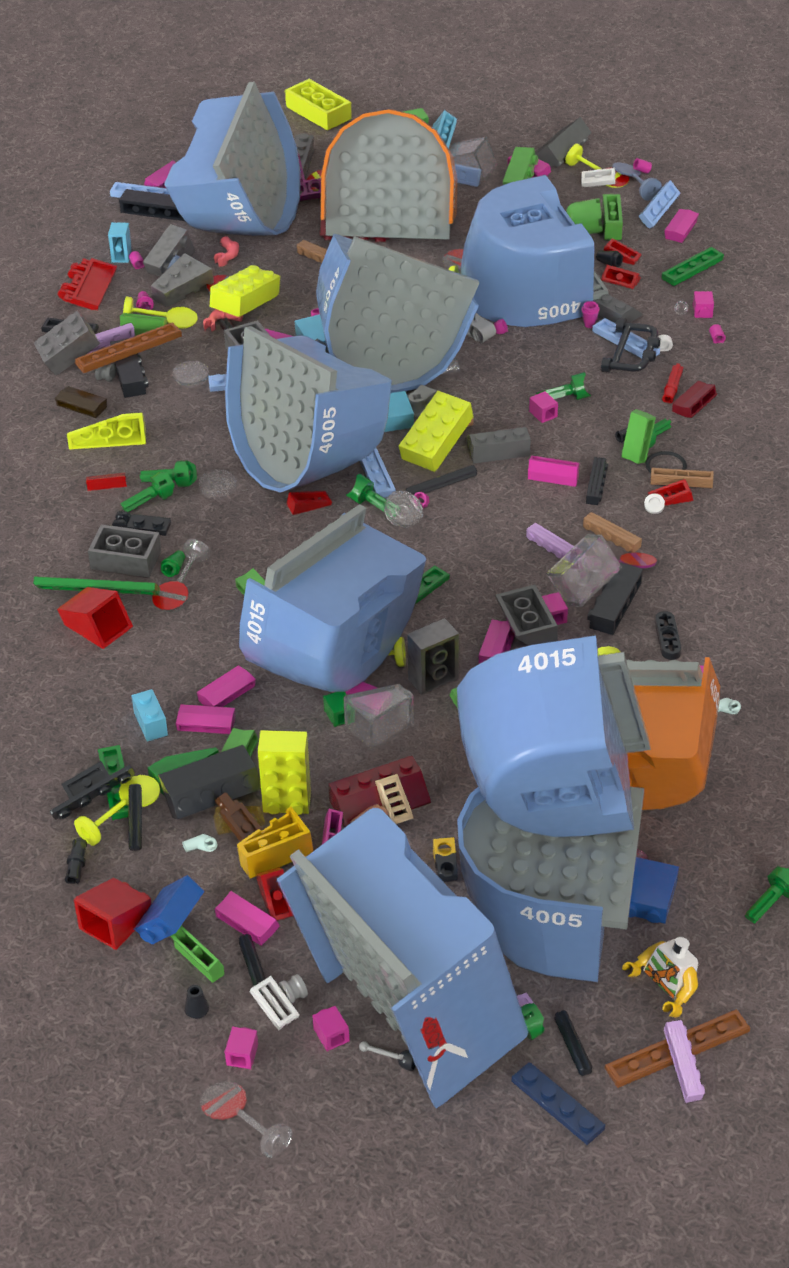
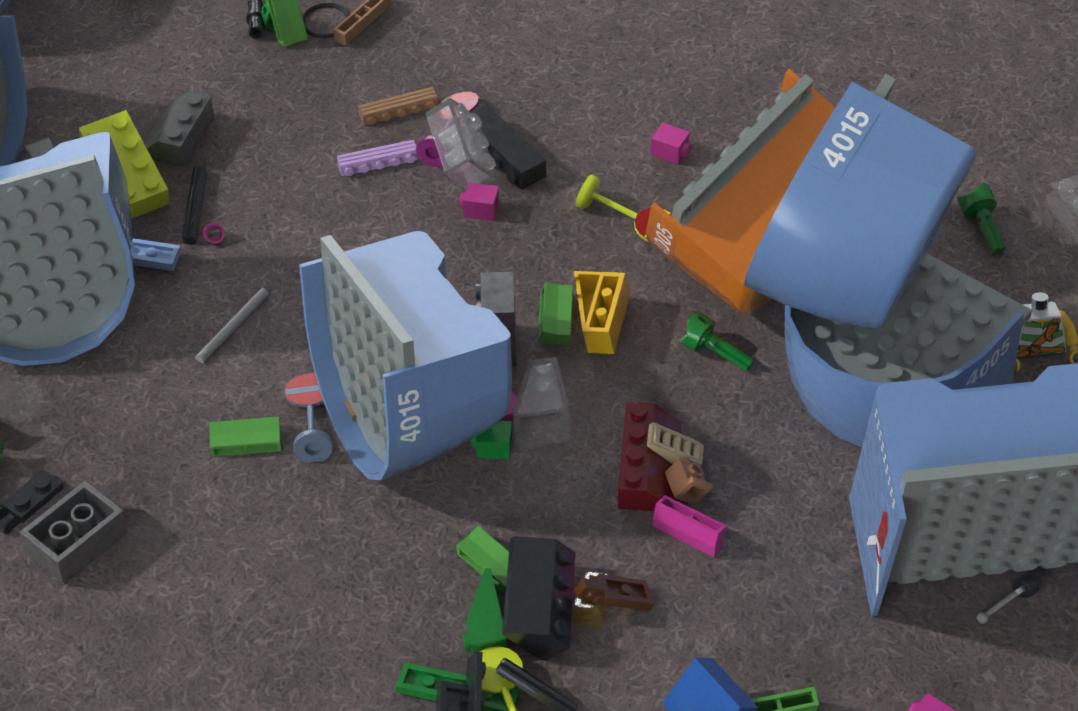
camera: 60 degrees left, 5 degrees up
(80, 584) = (109, 585): green tile -> none
(96, 615) = (161, 604): red slope -> none
(149, 715) = (377, 614): medium azure brick -> none
(172, 564) = (128, 497): green cone -> none
(175, 593) = (175, 521): piece -> none
(200, 842) = (608, 644): light aqua arm -> none
(205, 719) = (417, 566): dark pink piece -> none
(226, 688) = (383, 528): dark pink piece -> none
(246, 918) = (749, 646): dark pink piece -> none
(252, 960) = (817, 667): black axle -> none
(266, 1007) = (887, 672): white tile -> none
(272, 894) = (731, 604): red slope -> none
(274, 844) = (667, 568): yellow wedge -> none
(284, 771) = (595, 510): neon yellow brick -> none
(294, 988) = (877, 643): light grey wheel -> none
(302, 501) = (121, 340): red slope -> none
(330, 1028) = (949, 632): dark pink brick -> none
(364, 491) = (160, 273): green piece -> none
(403, 509) = (221, 252): clear tile -> none
(445, 859) = (780, 443): black leg -> none
(497, 640) = (483, 259): dark pink piece -> none
(528, 615) = (485, 218): dark grey slope -> none
(543, 407) = (152, 67): dark pink brick -> none
(553, 470) = (266, 105): dark pink piece -> none
(575, 387) = (148, 26): green piece -> none
(597, 481) = (307, 82): black piece -> none
(654, 503) = (384, 54): white tile -> none
(671, 628) = (571, 128): black beam -> none
(681, 491) = (383, 22): red slope -> none
(729, 706) = (713, 139): light aqua arm -> none

